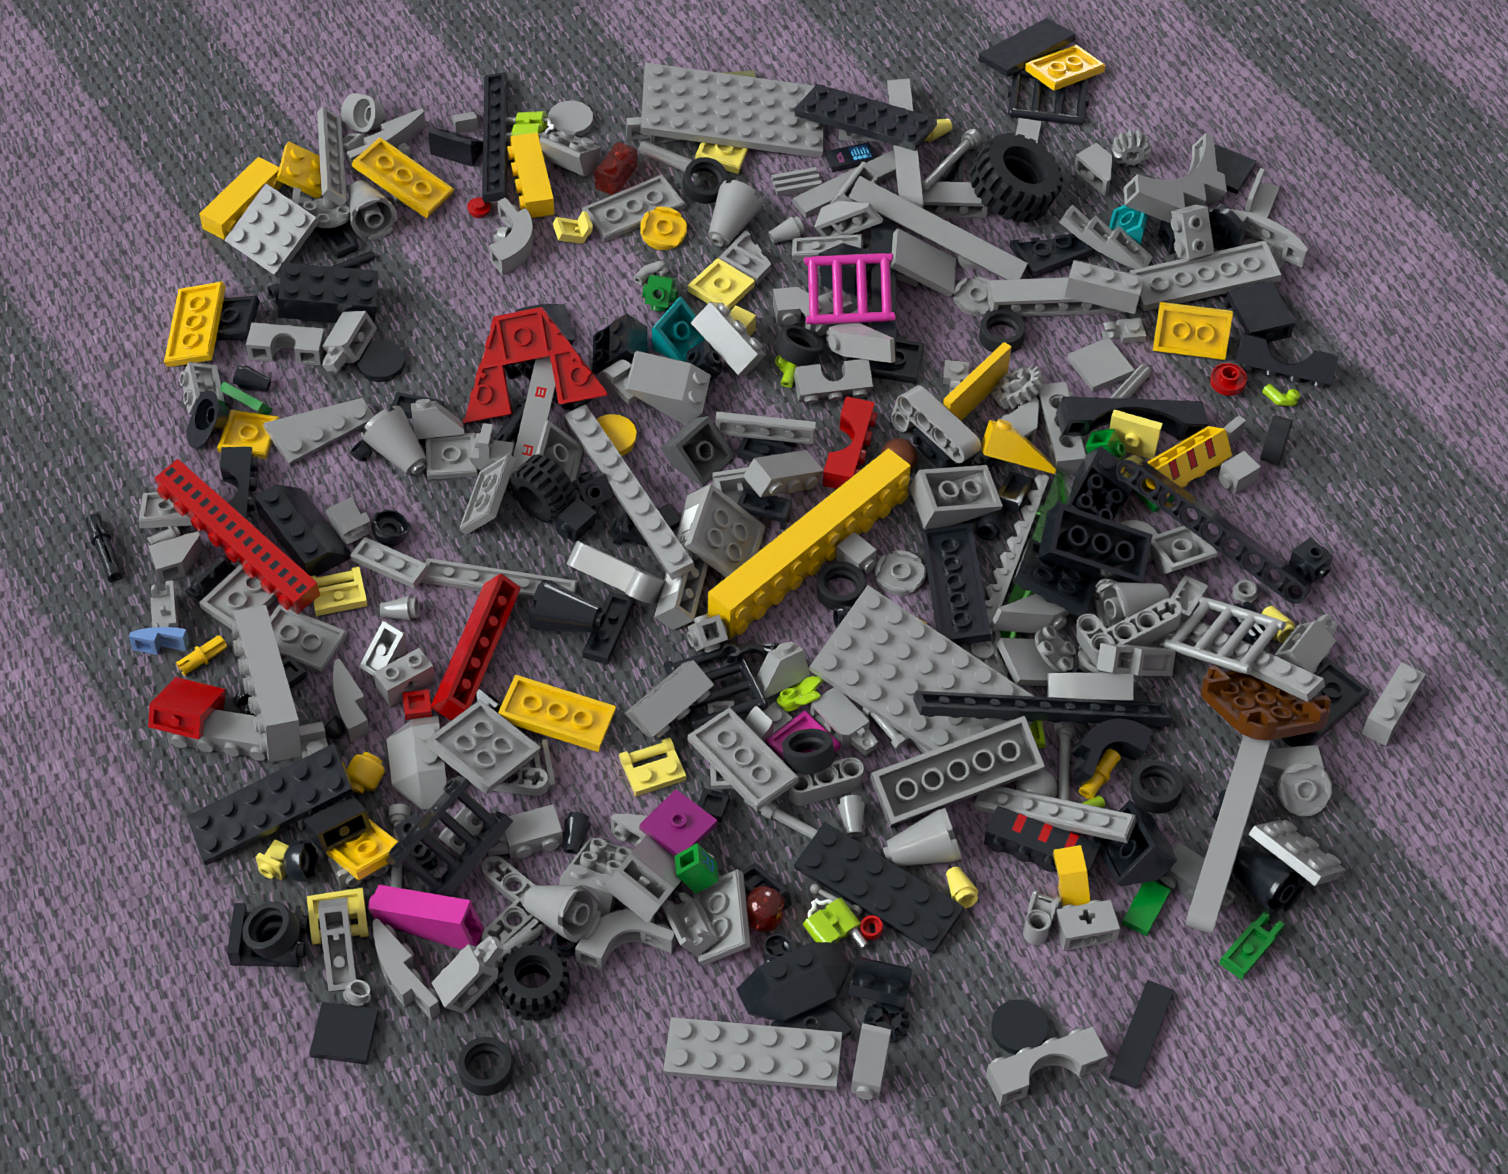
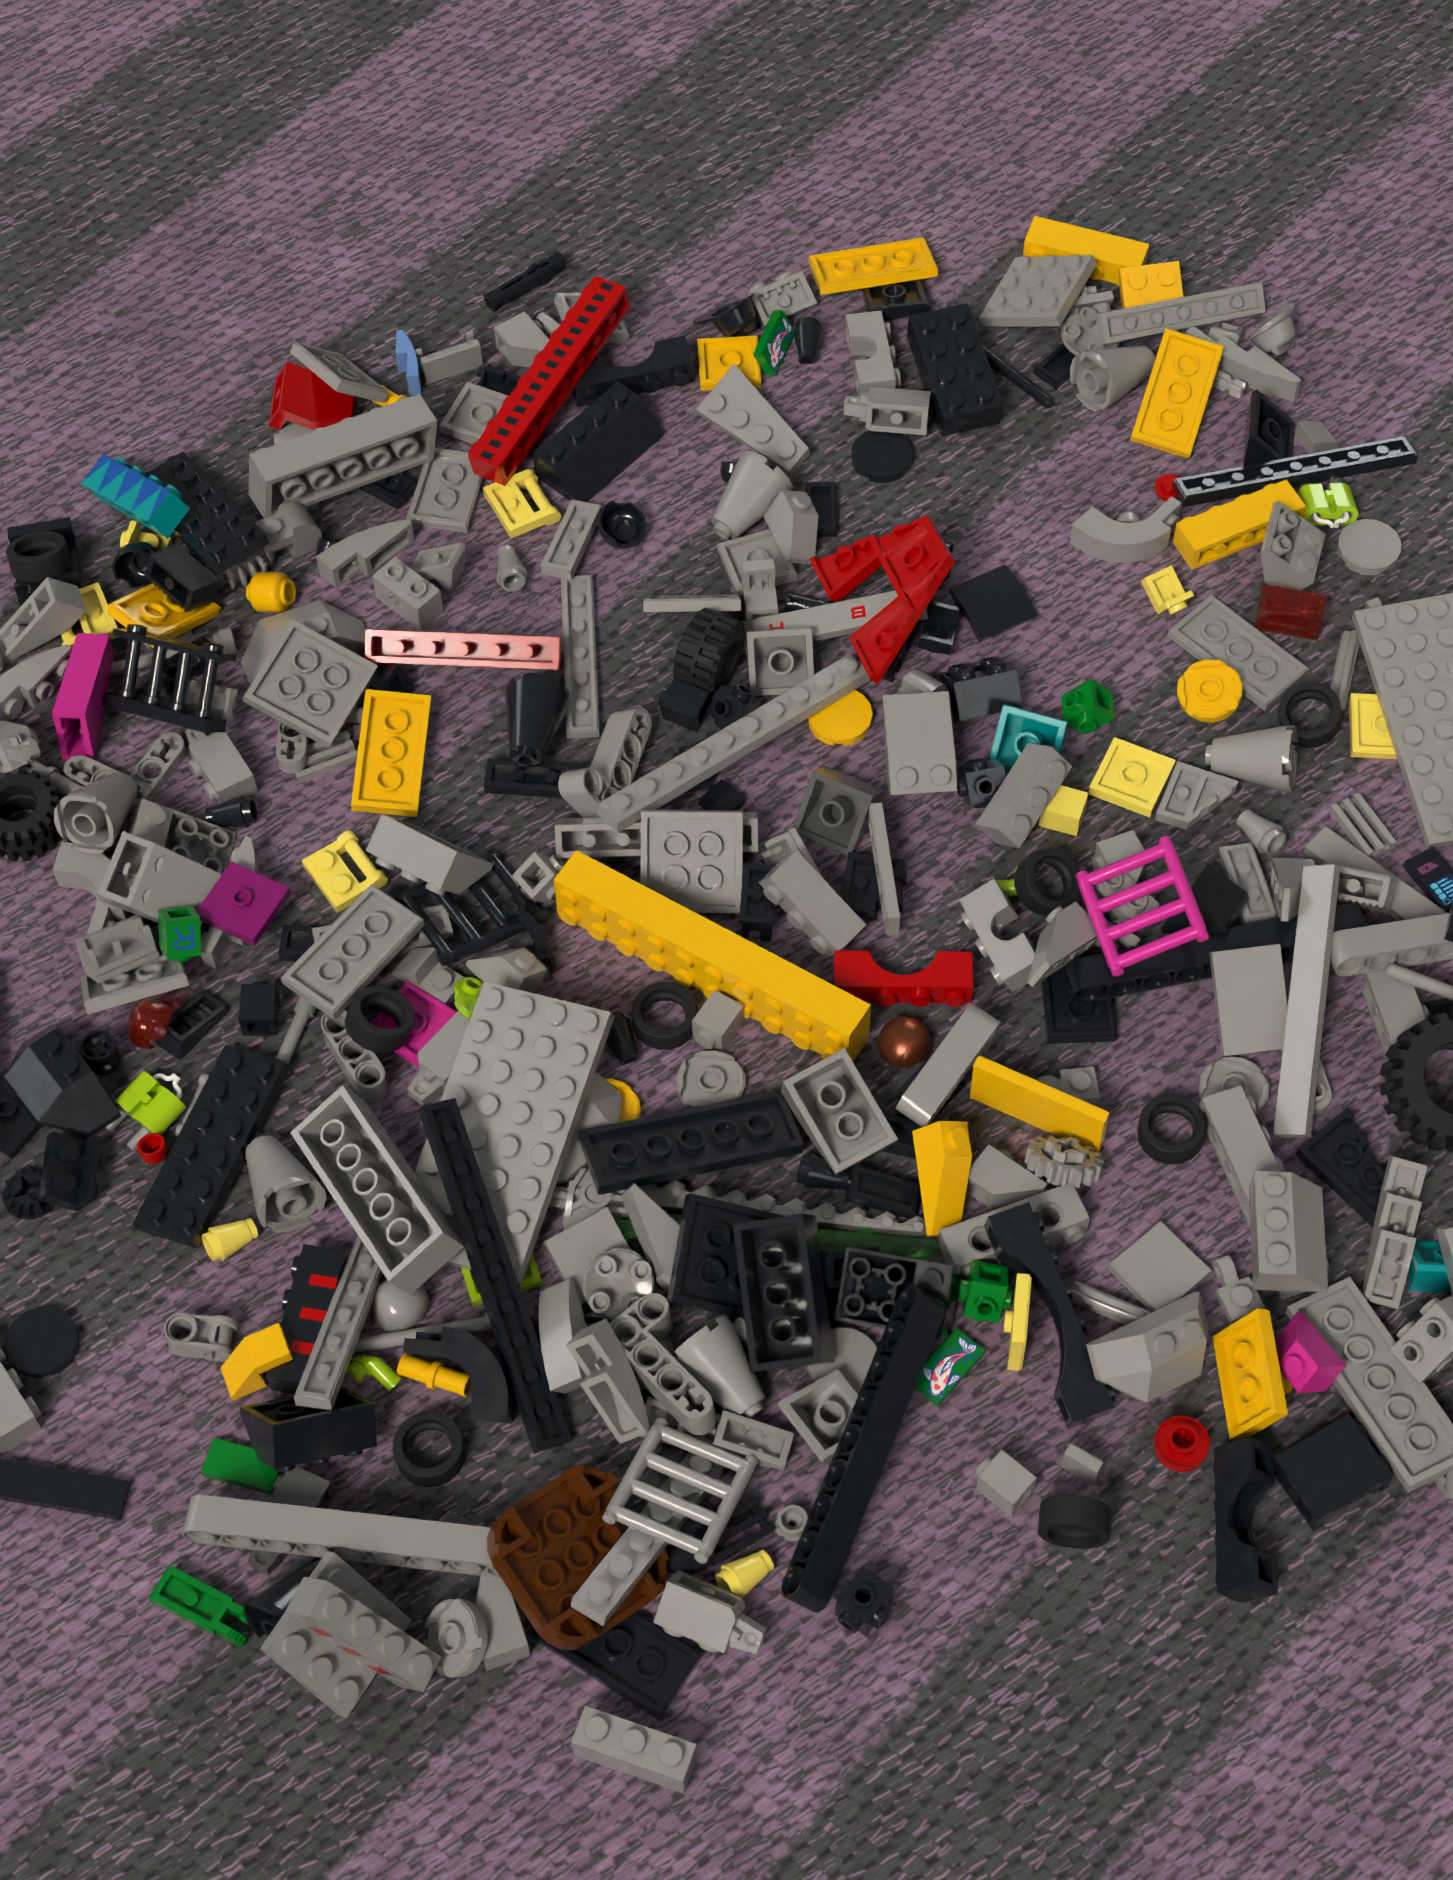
camera: 80 degrees right, 5 degrees up
(160, 681) = (339, 372): none -> light grey tile
(236, 845) = (136, 494): none -> teal brick
(348, 521) = (621, 482): light grey brick -> none
(417, 704) = (378, 615): red plate -> none
(643, 274) = (1130, 691): light grey arm -> none
(766, 837) = (259, 1009): none -> black brick
(852, 813) = (310, 1095): light grey cone -> none
(1086, 924) = (200, 1412): light grey brick -> none
(1165, 366) = (1153, 1350): none -> light grey wedge
(1192, 295) = (1307, 1357): none -> dark pink slope
(1192, 457) = (992, 1399): yellow brick -> none
(1279, 398) = (1177, 1528): lime arm -> none
(1309, 825) = (363, 1634): none -> light grey brick

